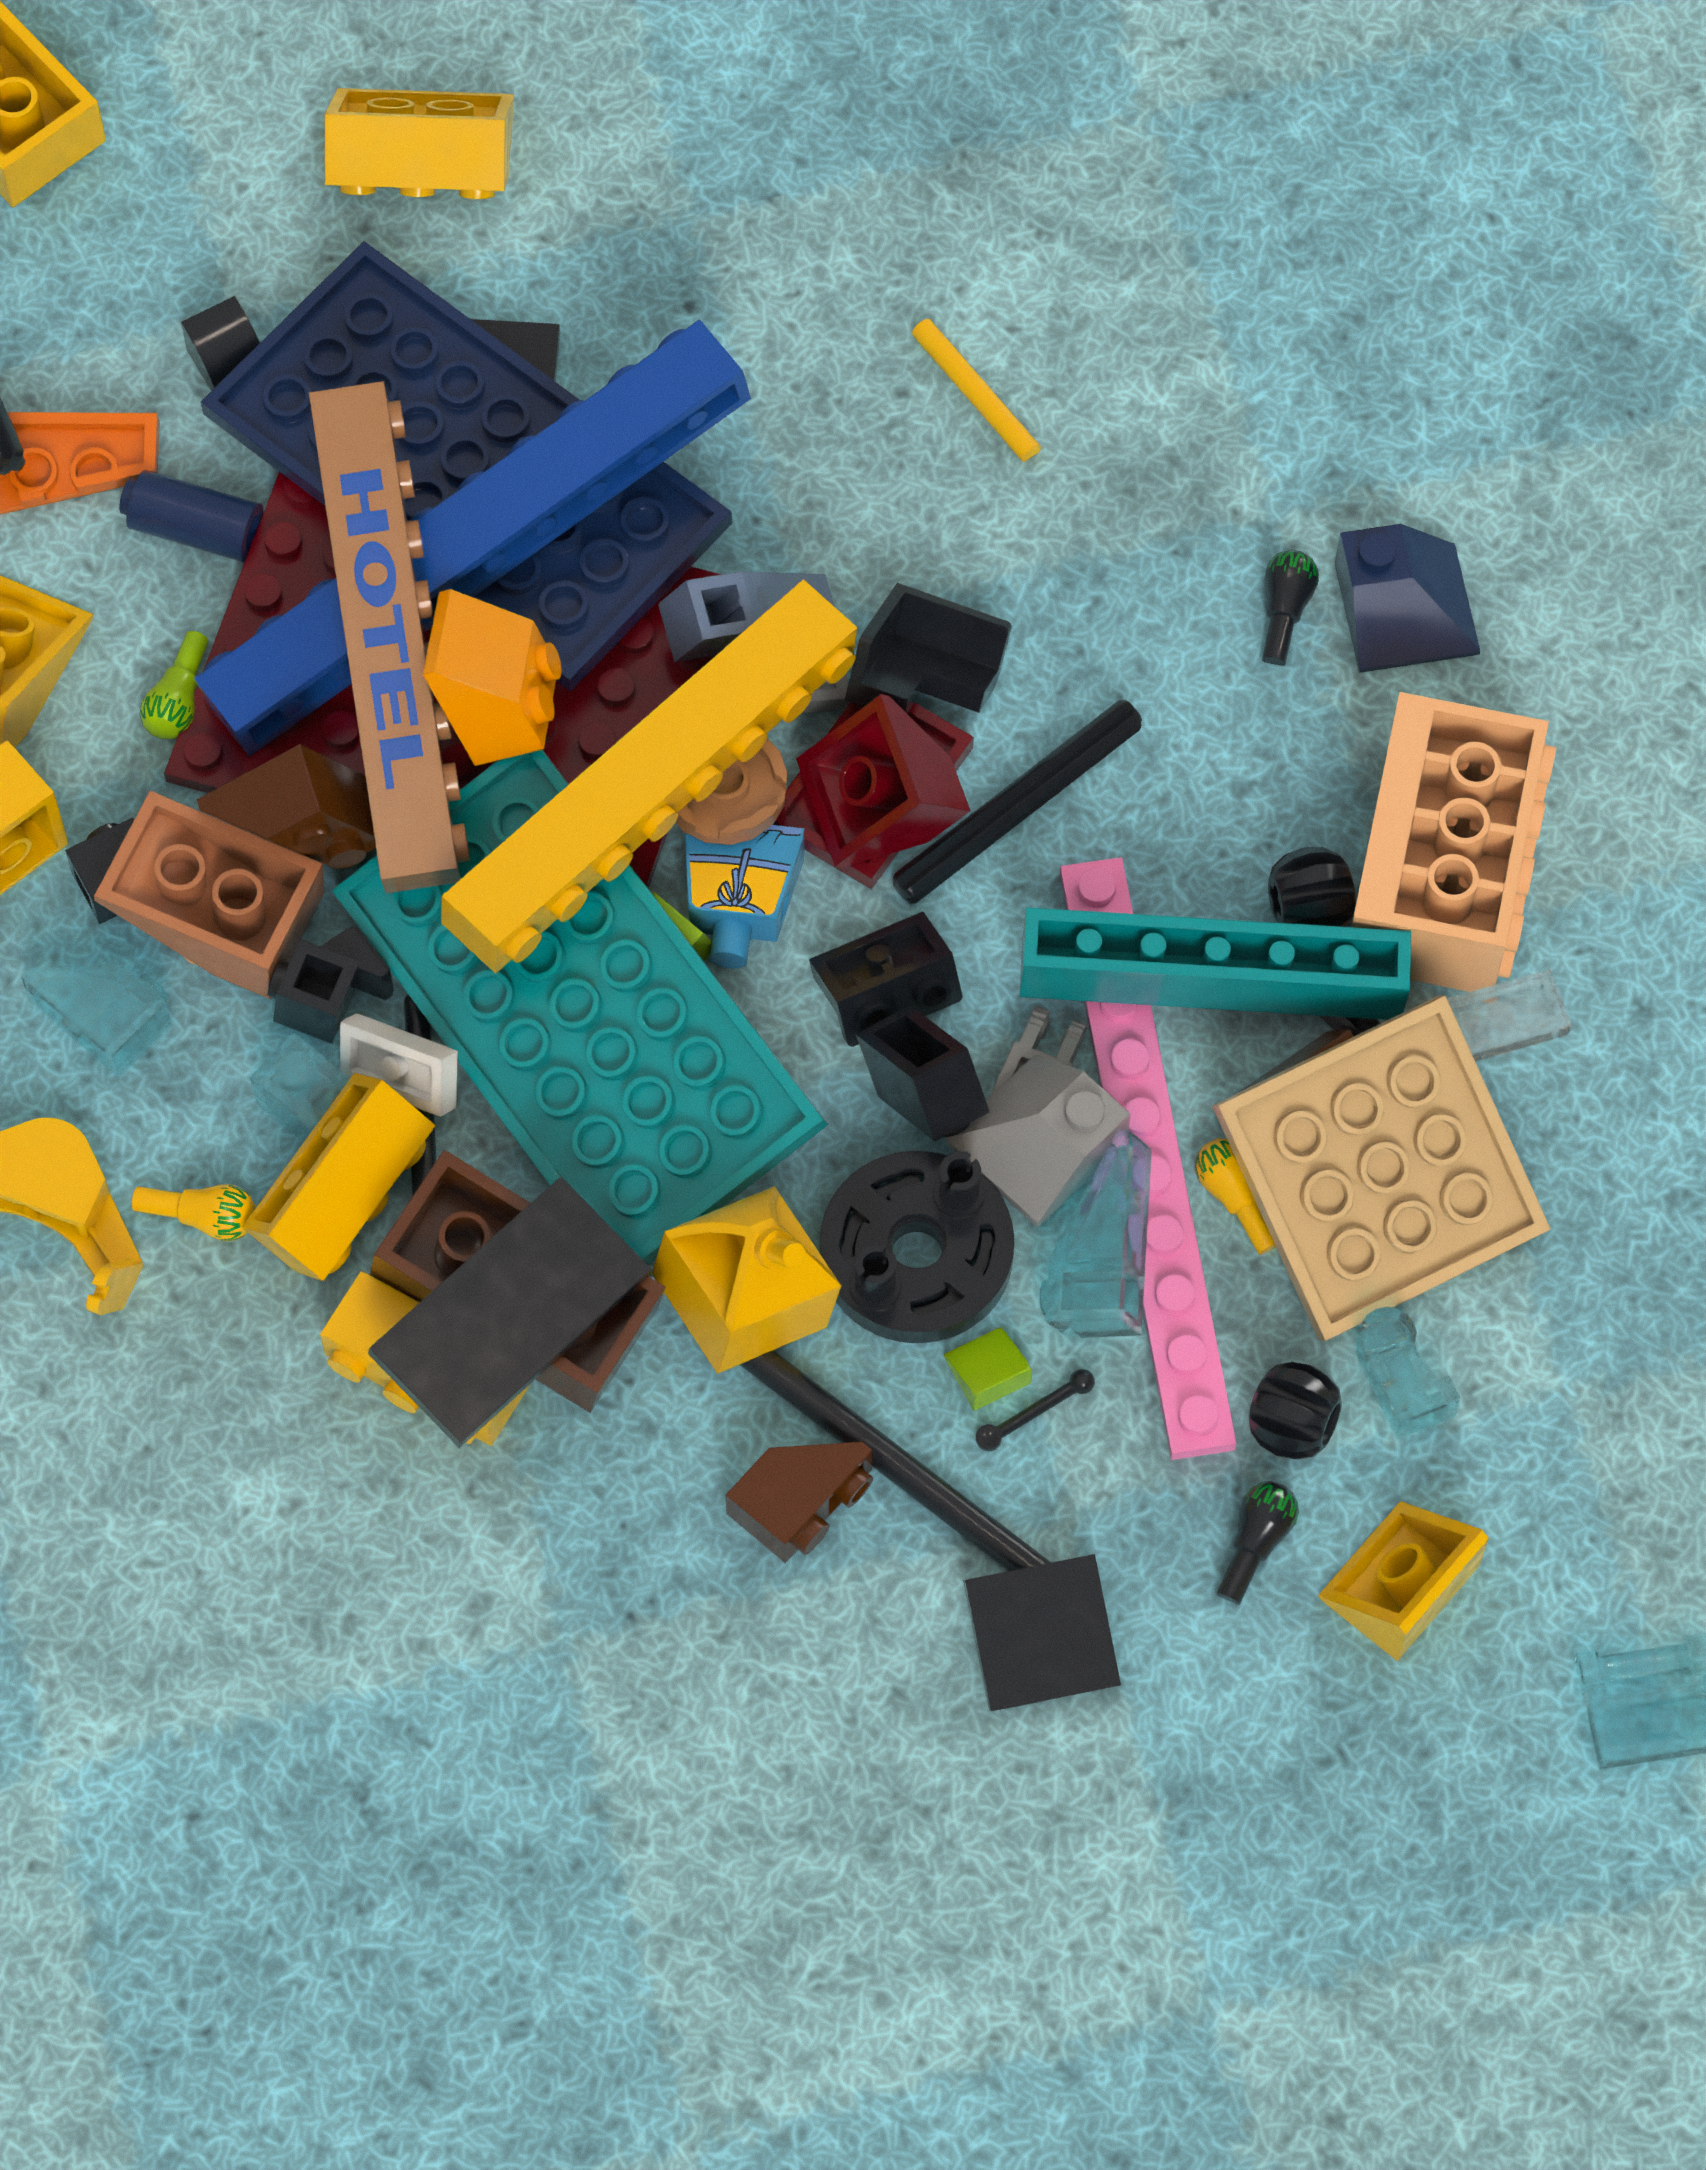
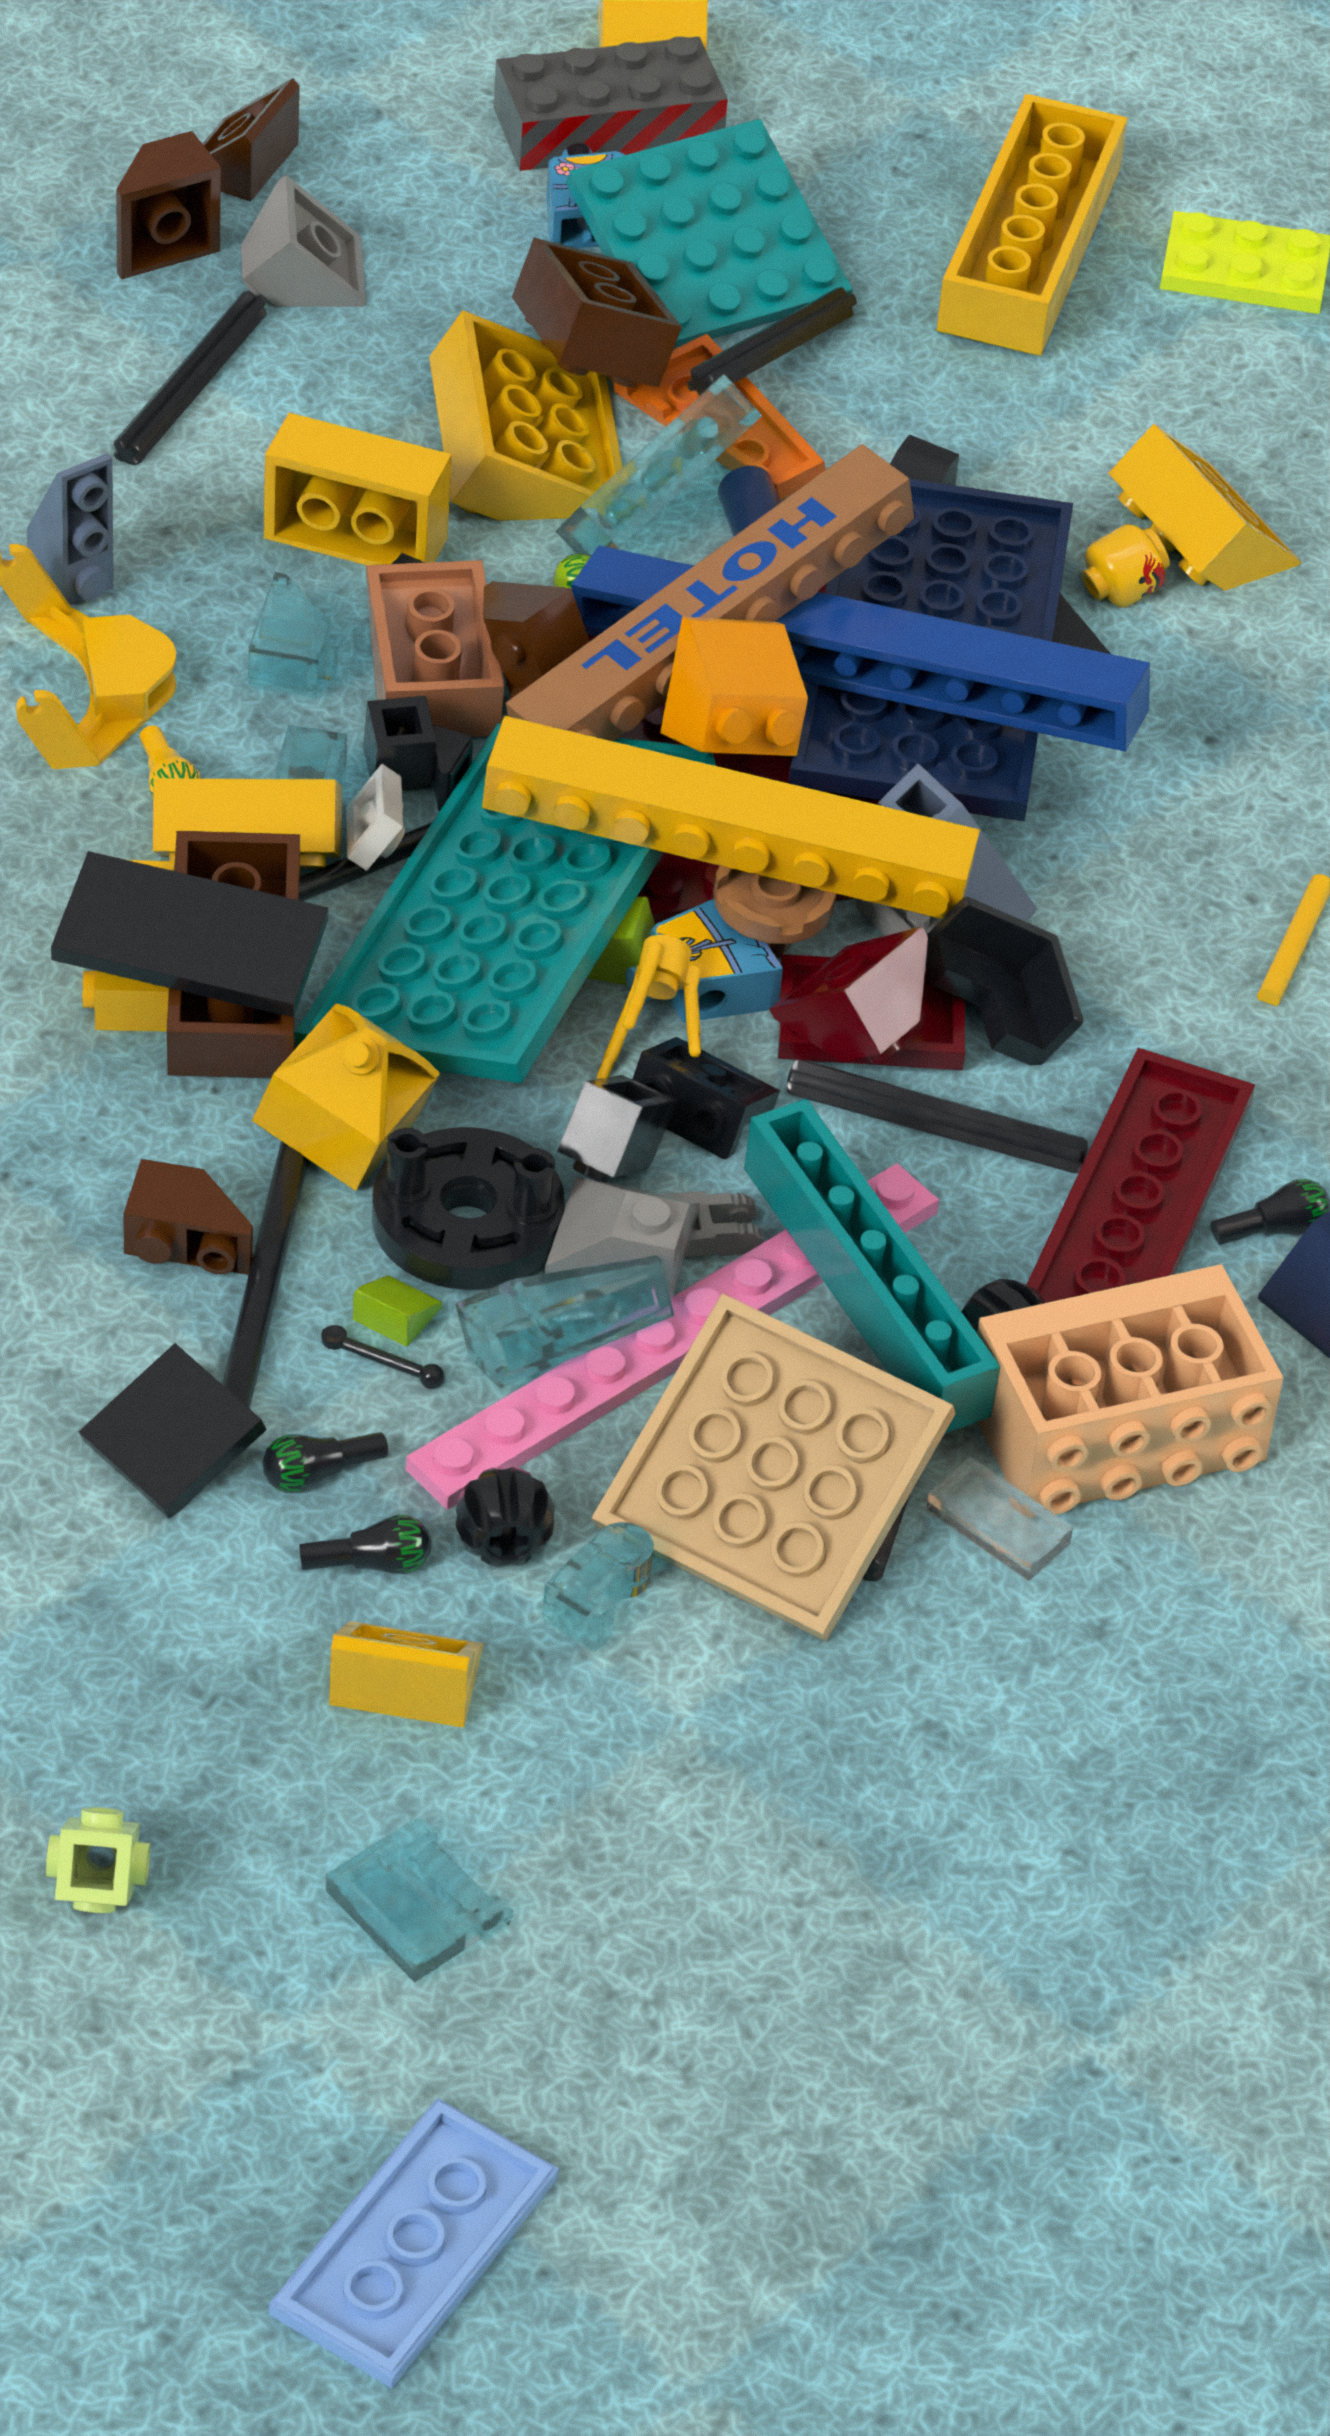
camera: 55 degrees right, 20 degrees down
(99, 566) = (661, 470): none -> clear light blue brick
(447, 243) = (1125, 565): none -> yellow head
(762, 932) = (659, 975): none -> yellow plant
(1130, 1544) = (302, 1460): none -> black piece
(1211, 699) = (1143, 1178): none -> dark red plate
(1501, 1940) = (83, 1882): none -> yellowish green brick

